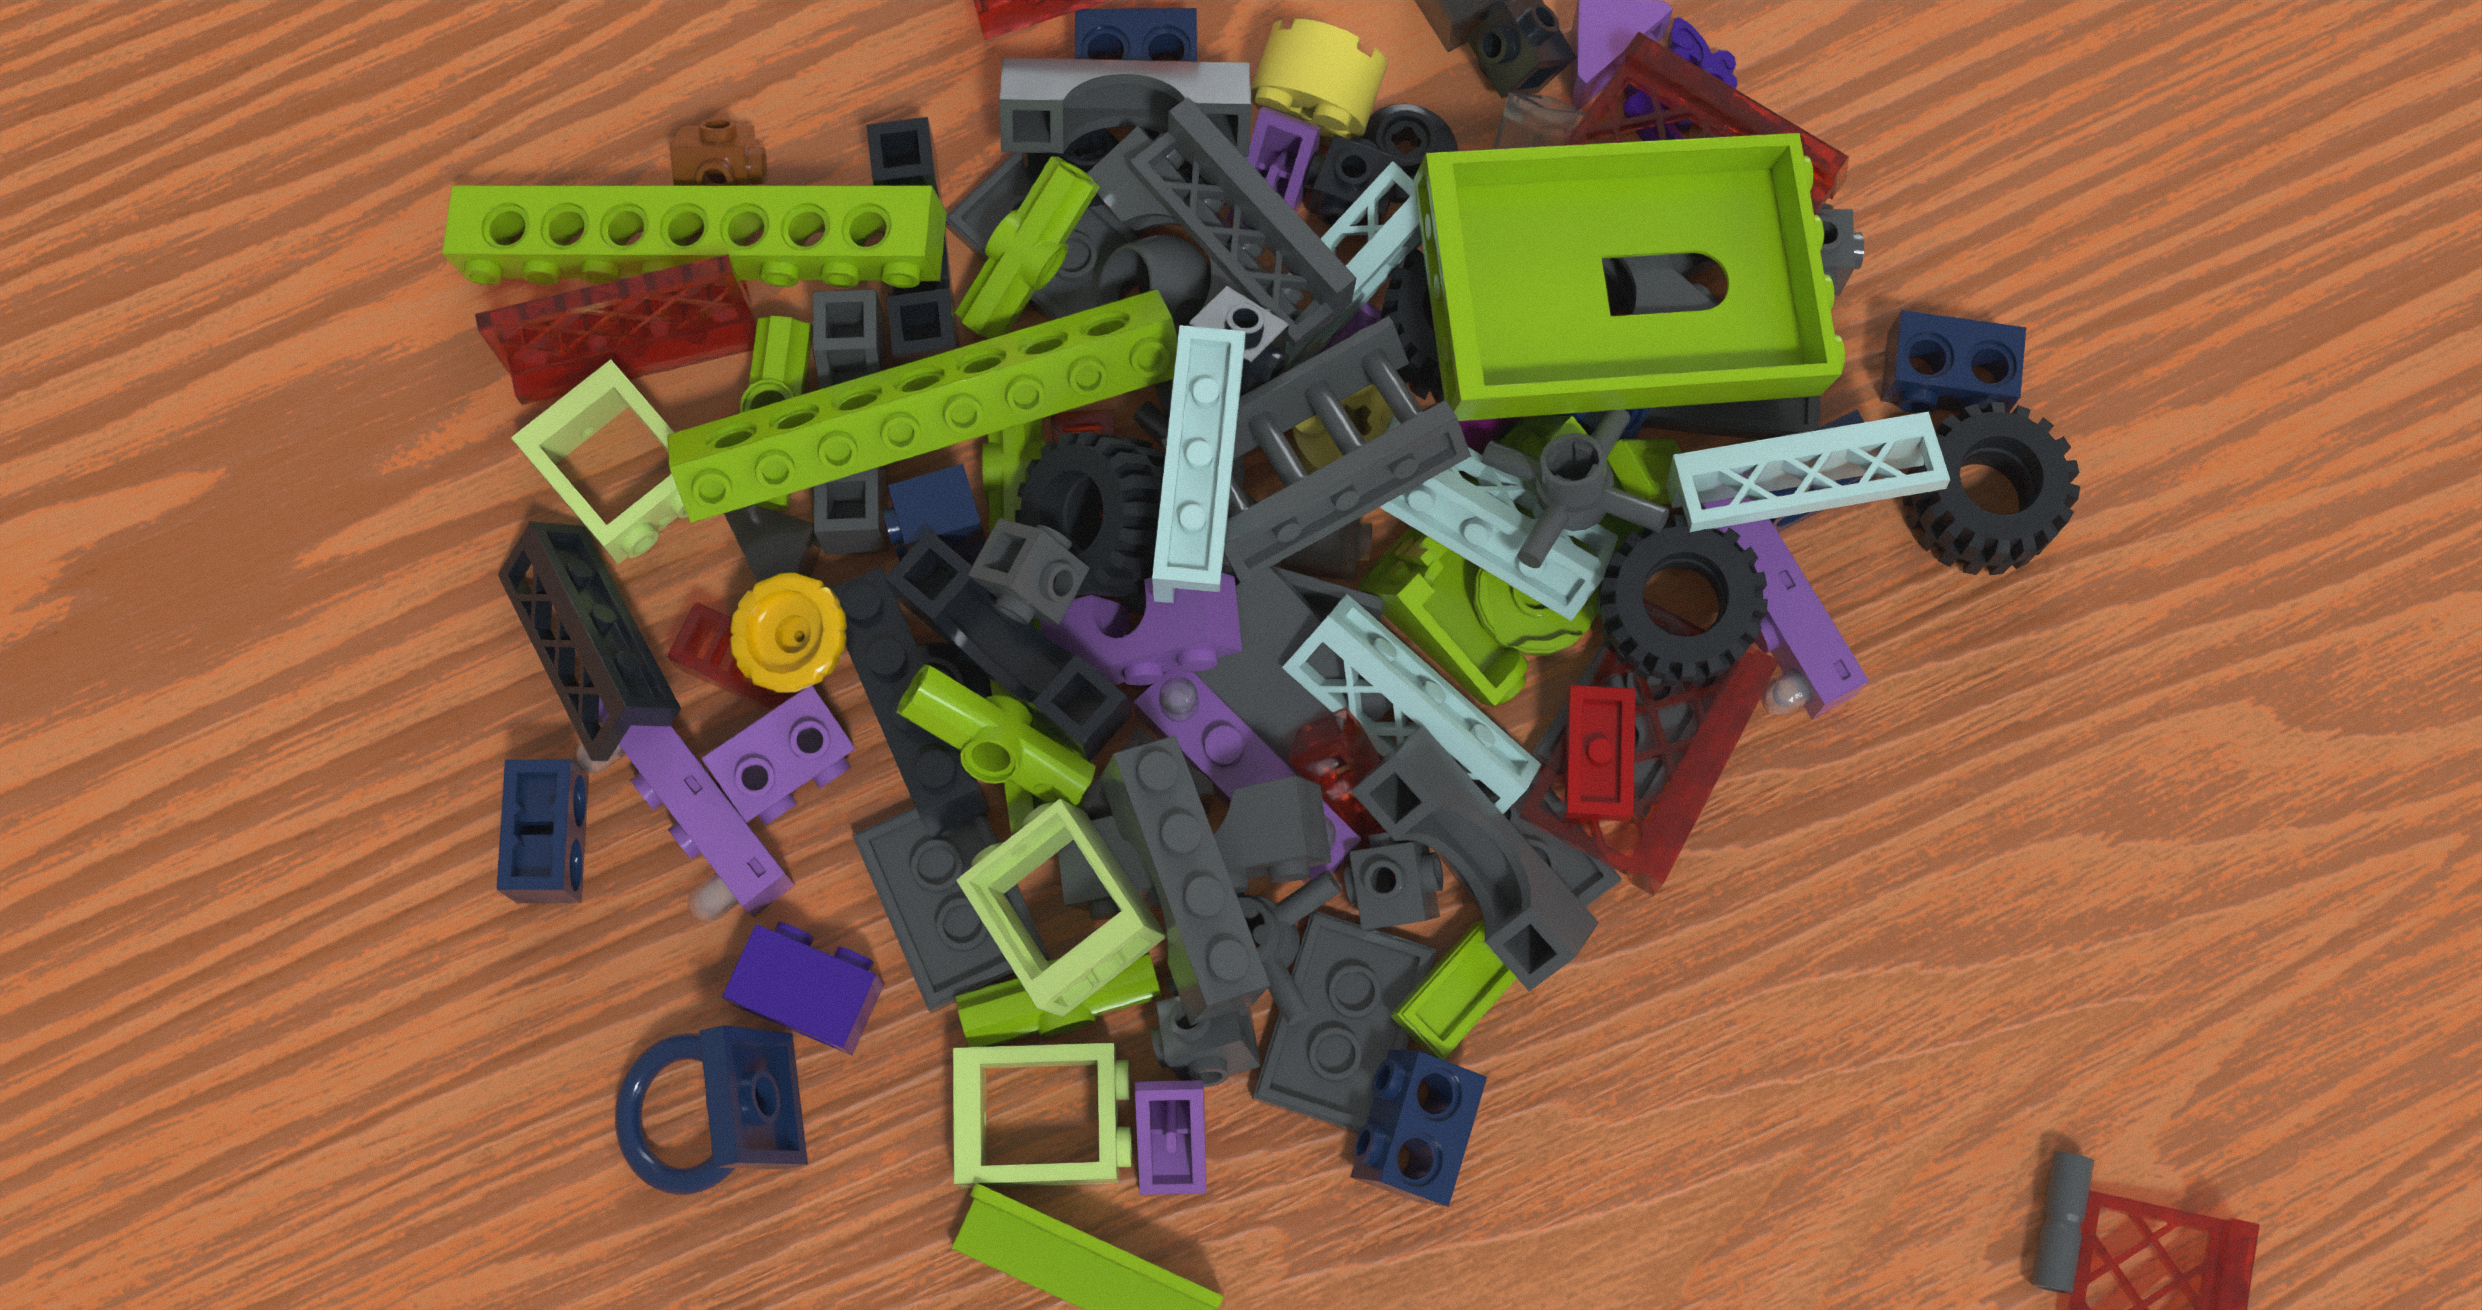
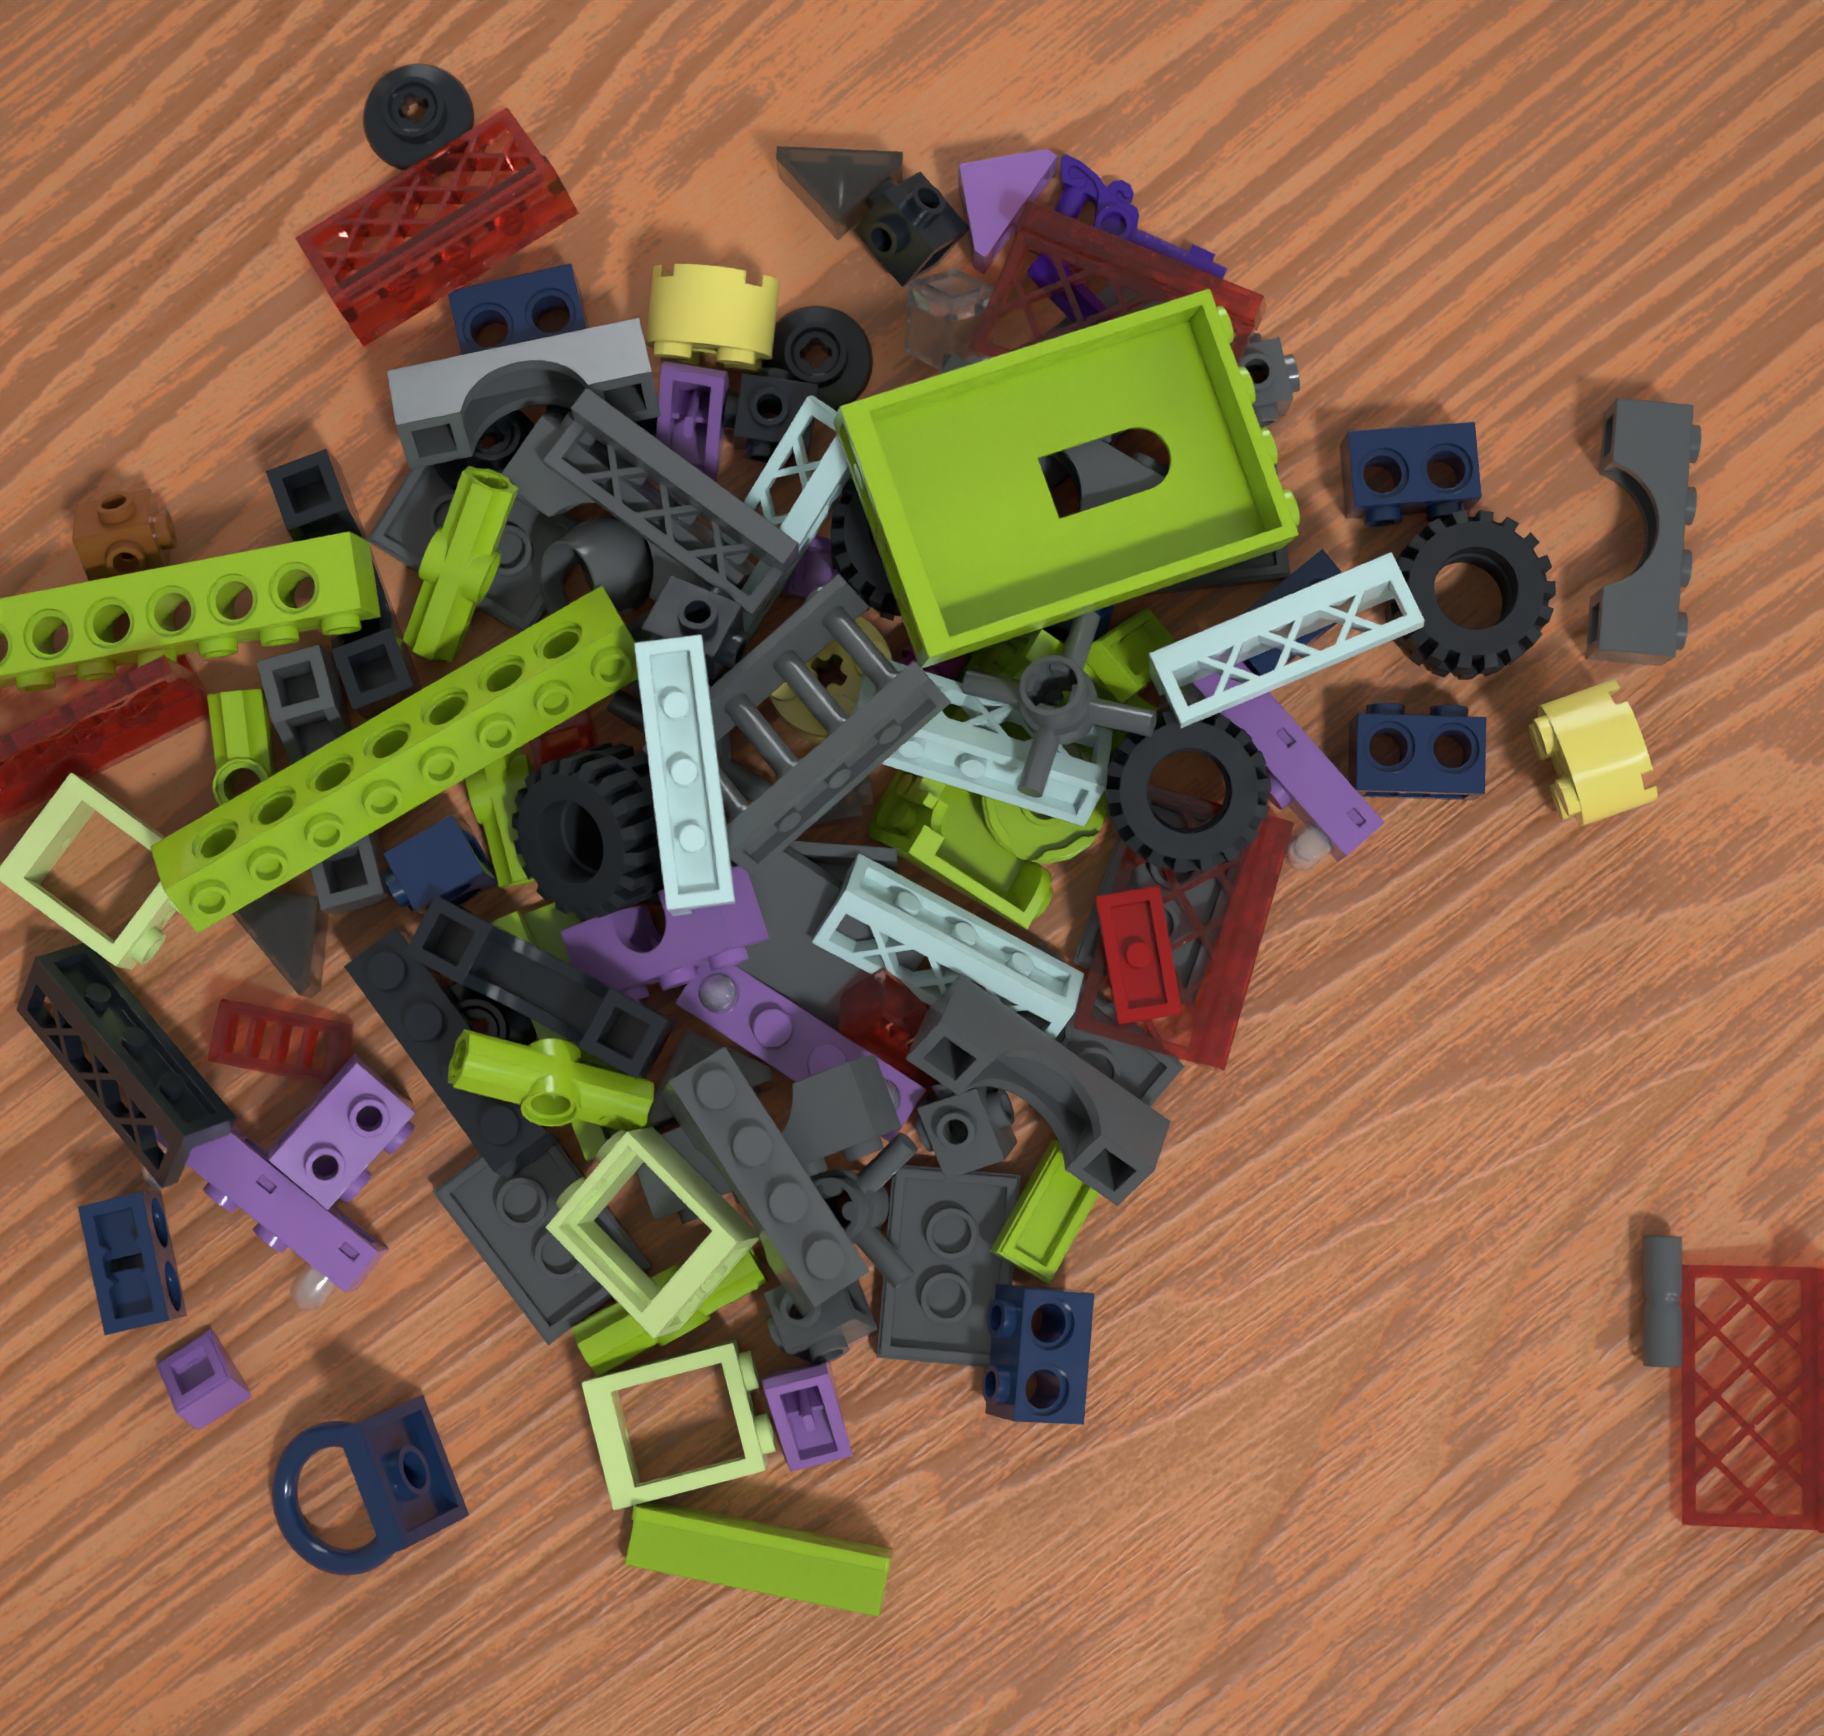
camera: 10 degrees left, 10 degrees up
(580, 971) = (202, 1380): none -> medium lavender slope
(770, 631) = (303, 1021): yellow hair -> none
(805, 987) = (423, 1351): dark purple brick -> none
(1029, 571) = (556, 917): dark grey brick -> none
(1910, 647) = (1417, 771): none -> dark blue brick
(2088, 661) = (1594, 754): none -> light yellow brick
(2187, 401) = (1649, 456): none -> dark grey arch

